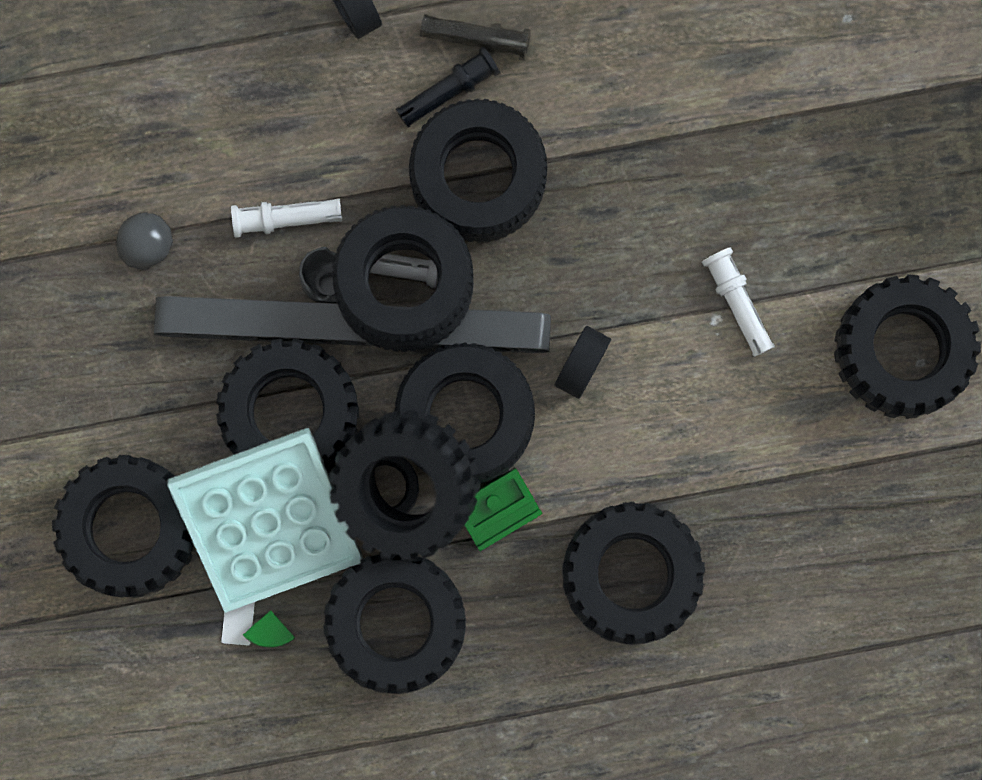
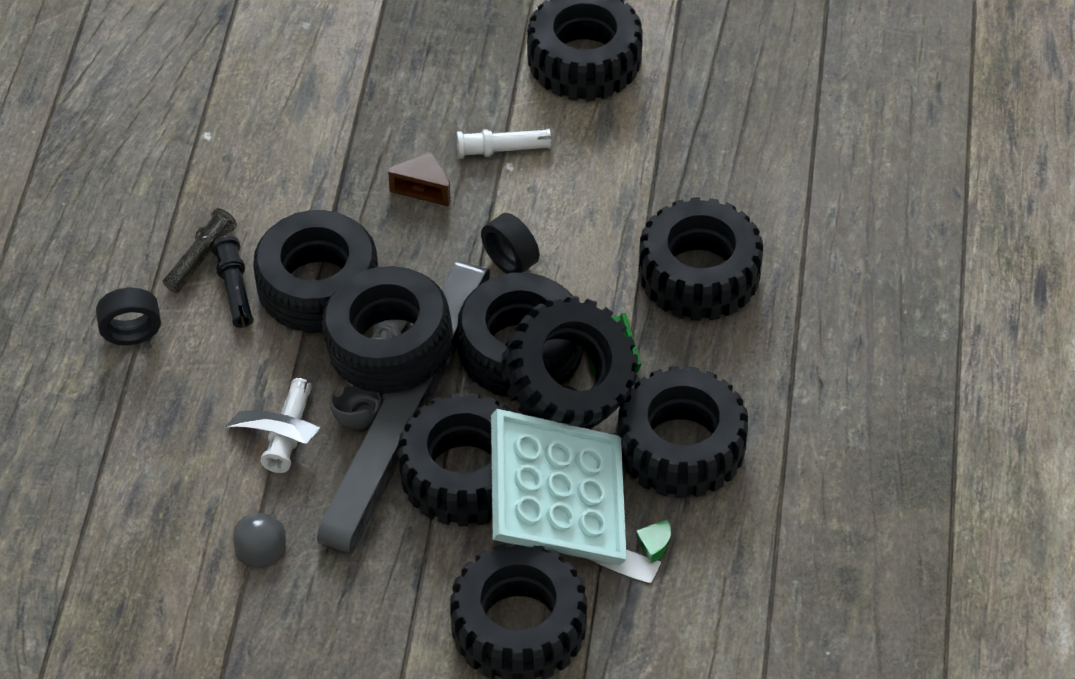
camera: 70 degrees left, 30 degrees down
(274, 202) = (277, 423): none -> sticker
(653, 233) = (421, 180): none -> reddish brown slope

